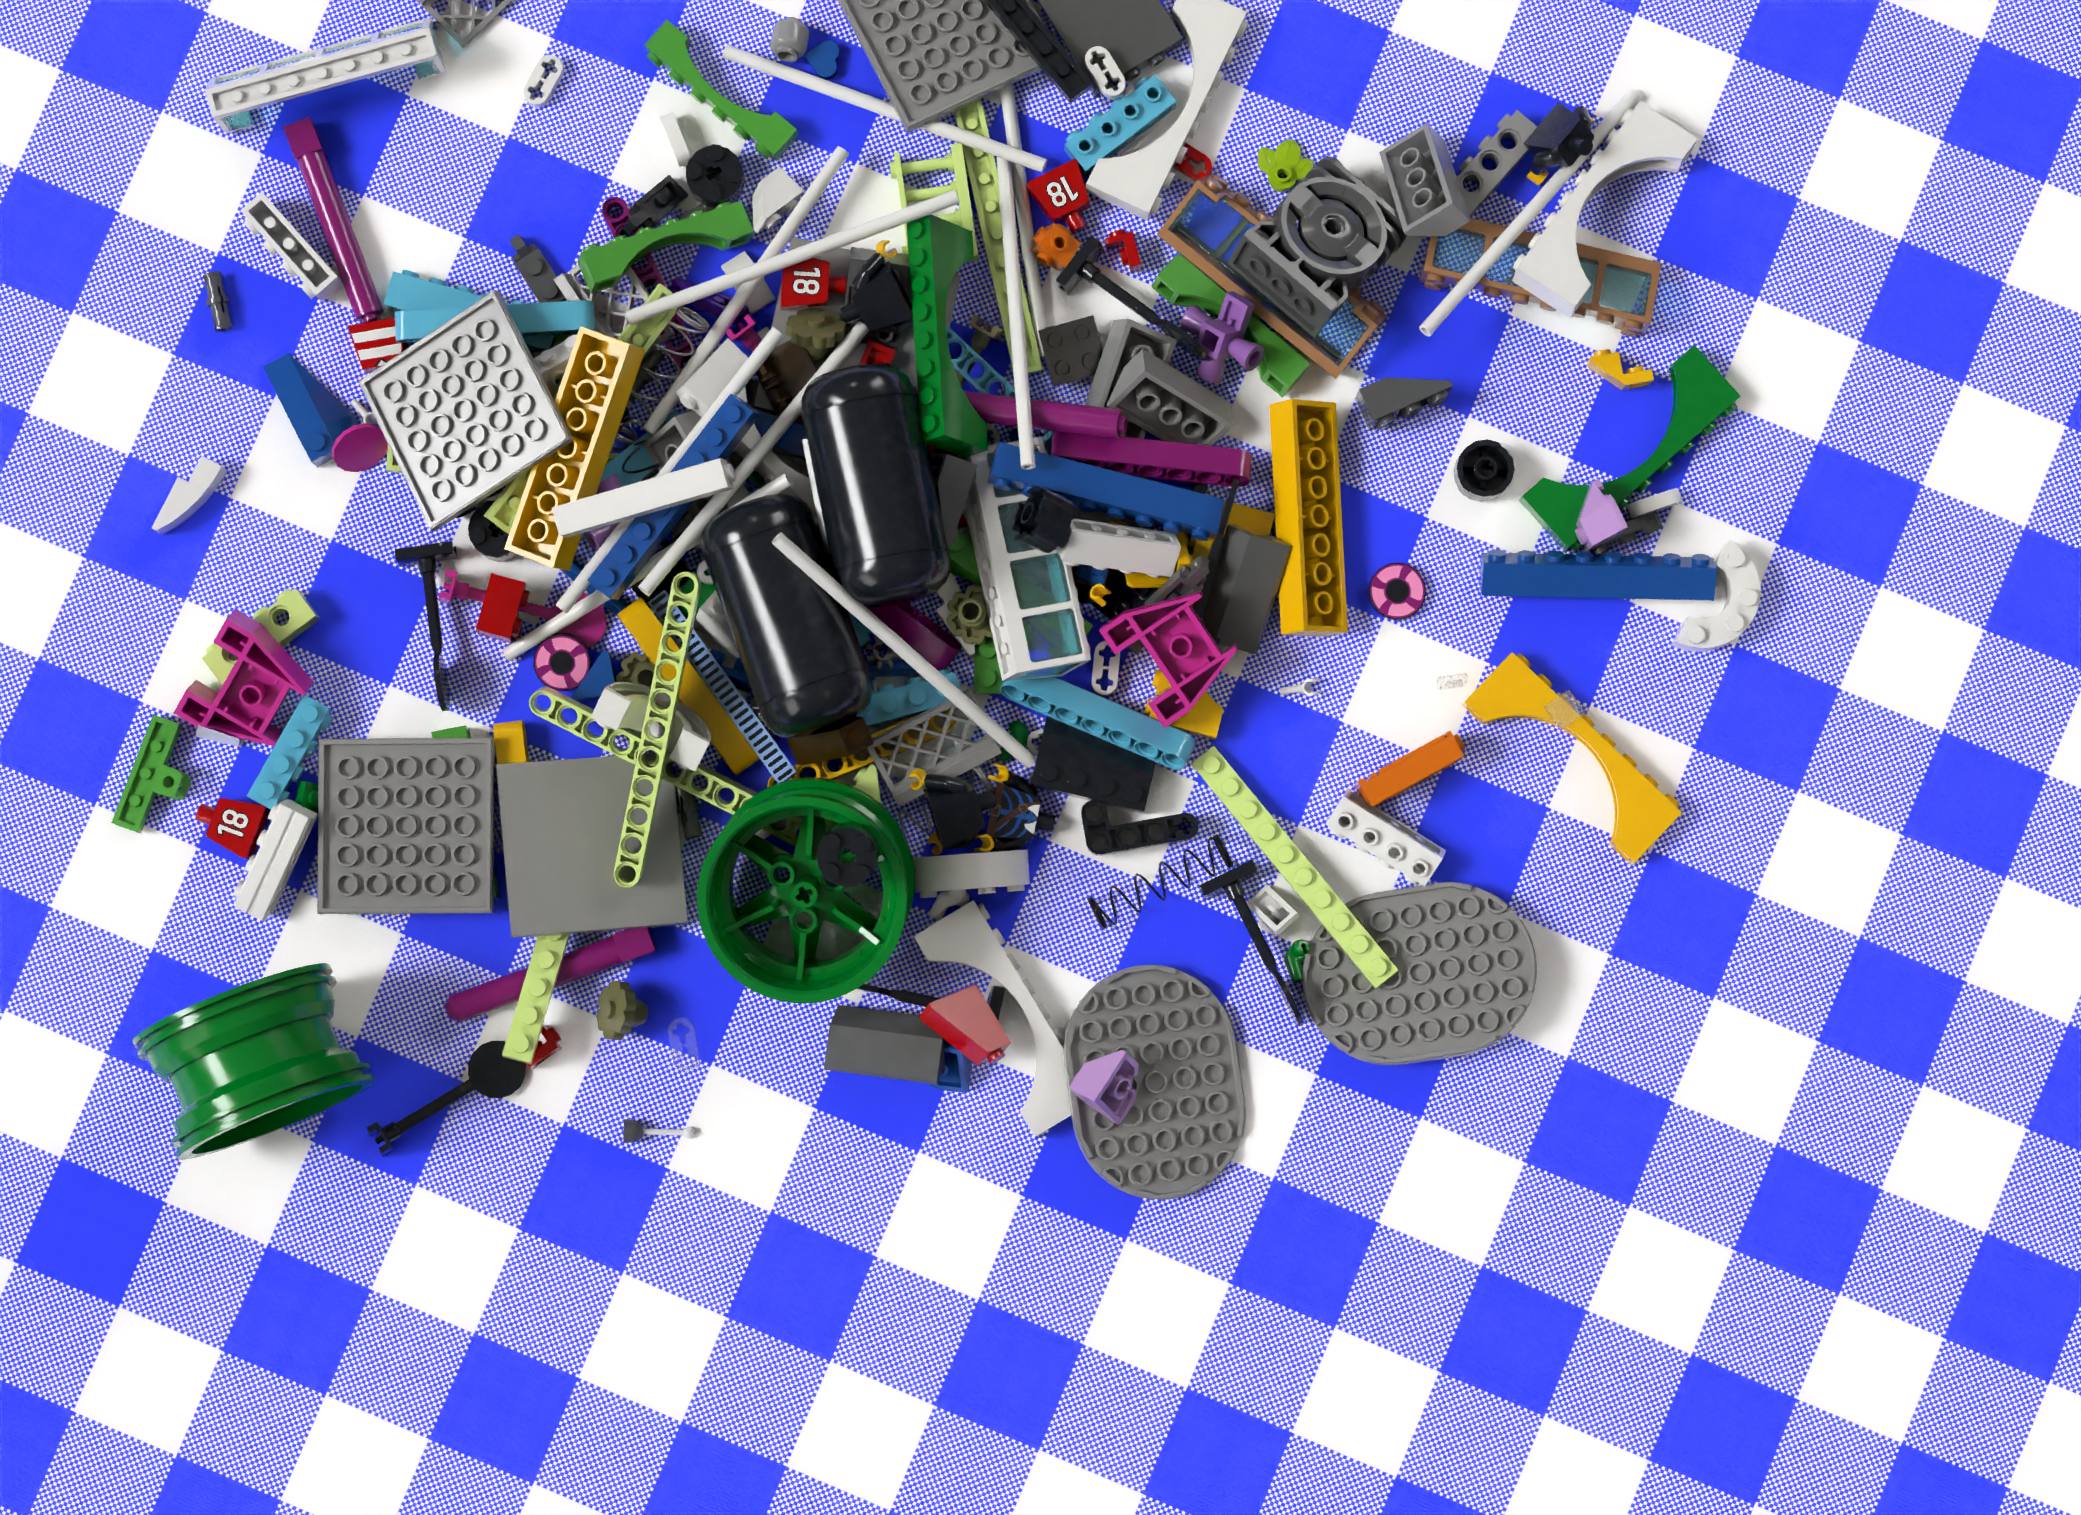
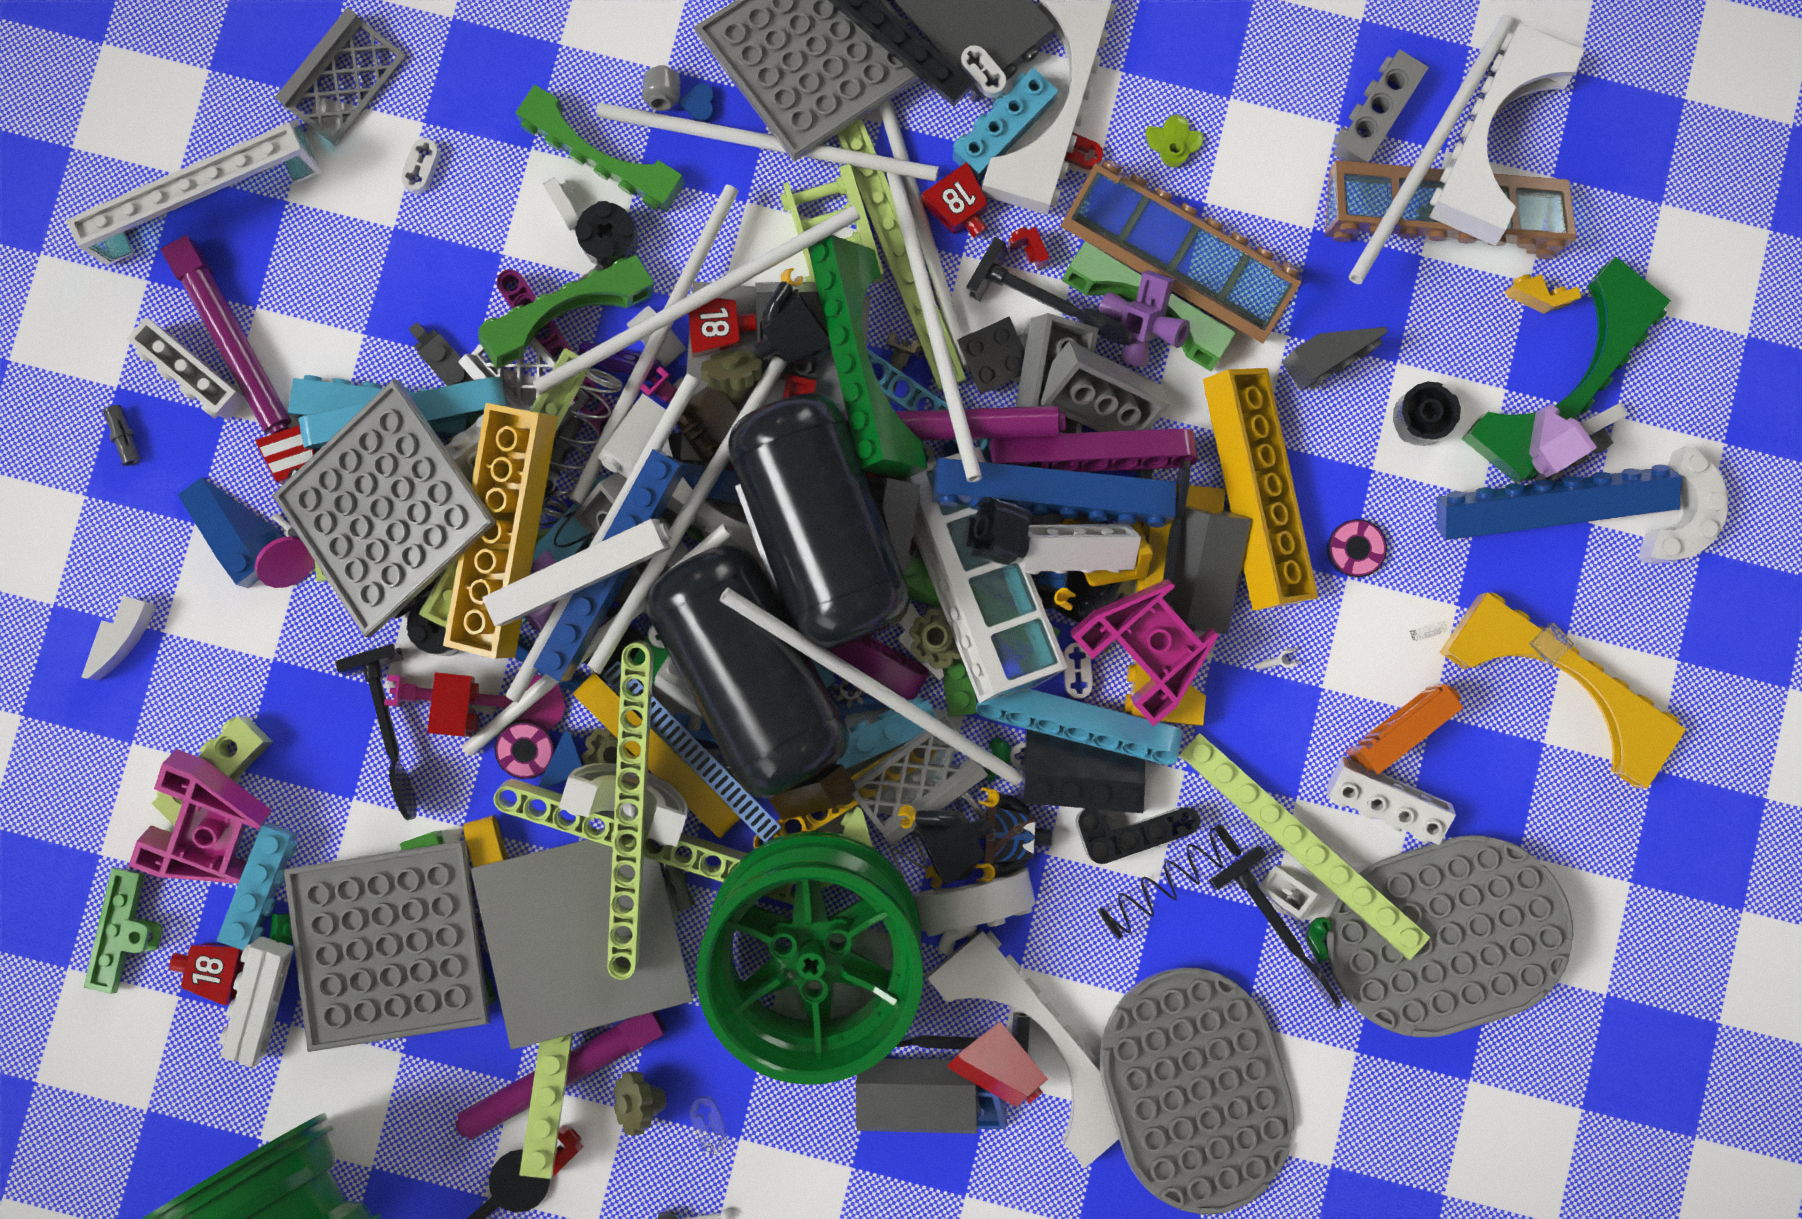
camera: 15 degrees left, 0 degrees up
(209, 734) = (179, 881): white sticker -> none
(655, 205) = (550, 272): black hinge -> none
(773, 198) = (669, 247): white slope -> none
(861, 844) = (852, 942): black brick -> none
(1054, 246) = (959, 253): orange brick -> none
(1107, 1084) = (1154, 1107): lavender slope -> none
(1183, 581) = (1147, 573): dark grey hinge -> none
(1311, 269) = (1229, 210): dark grey brick -> none
(1424, 184) = (1322, 135): light grey slope -> none
(1559, 140) = (1449, 72): black torso -> none

